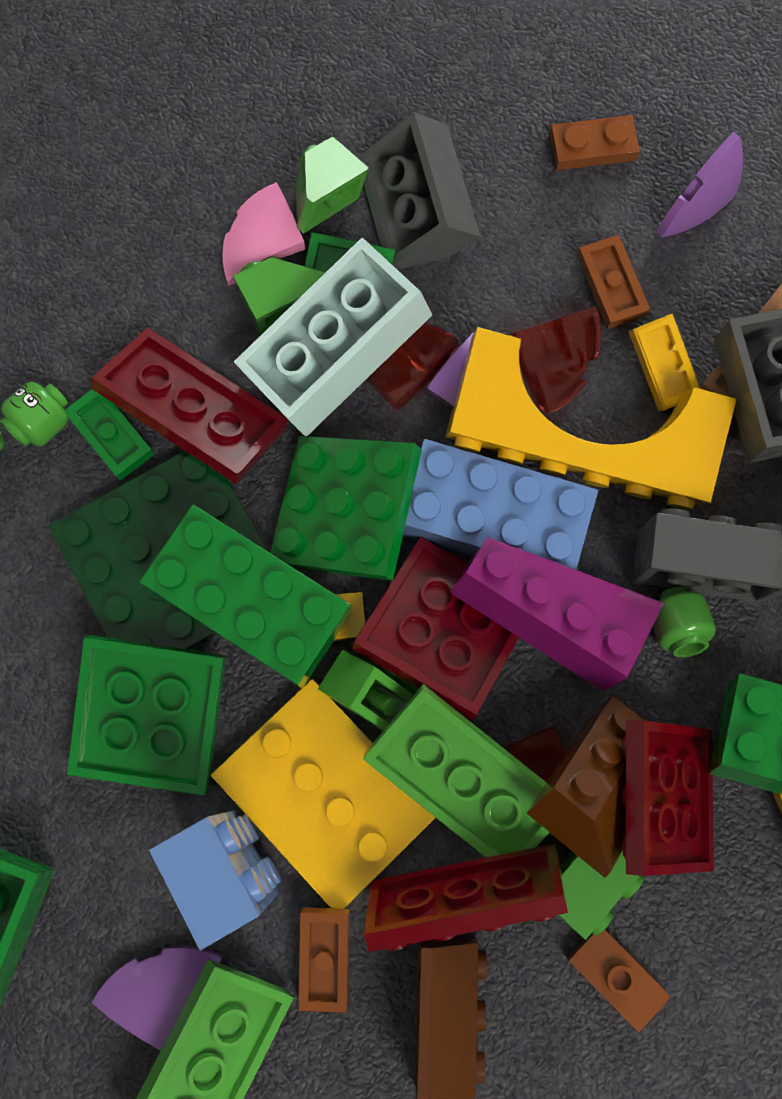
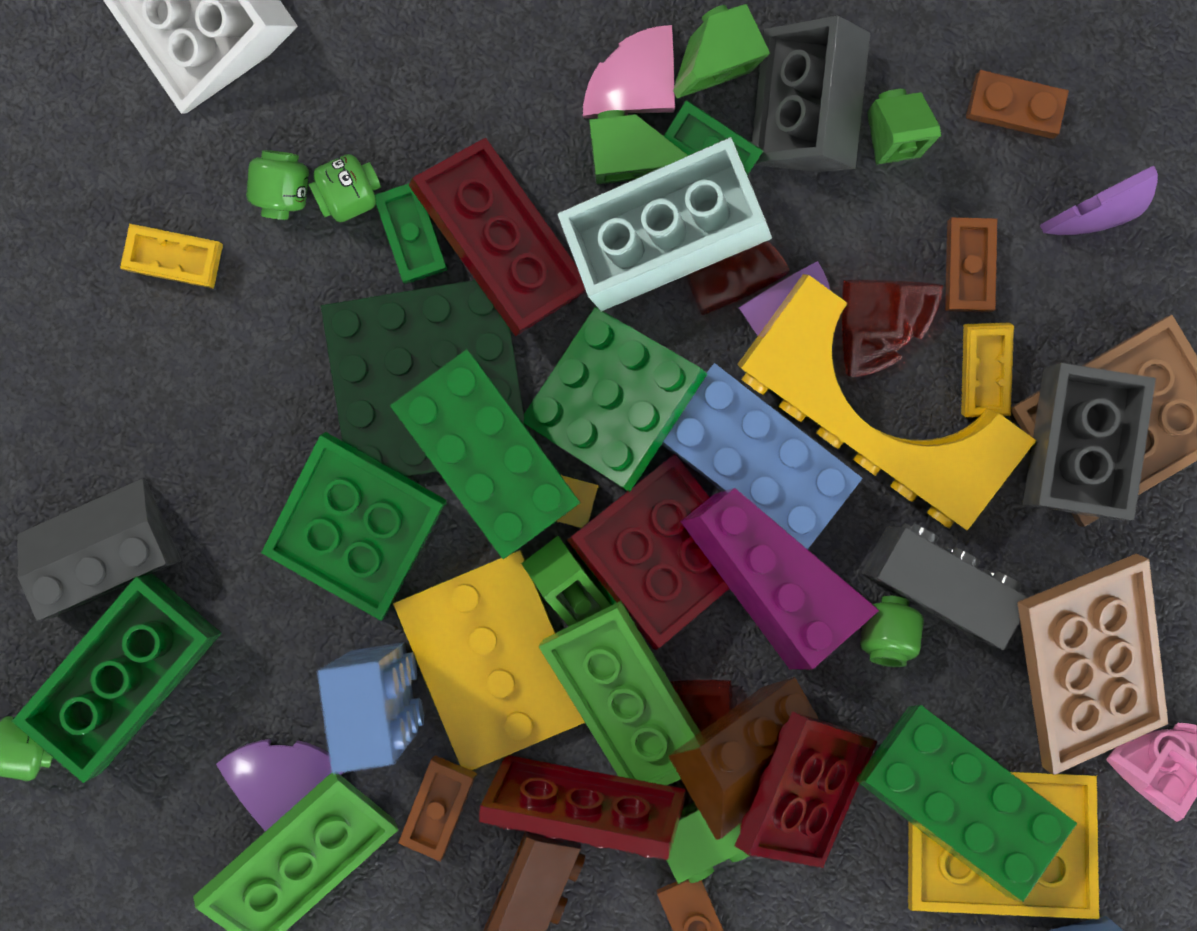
camera: 20 degrees right, 10 degrees up
(506, 189) = (901, 126): none -> bright green slope

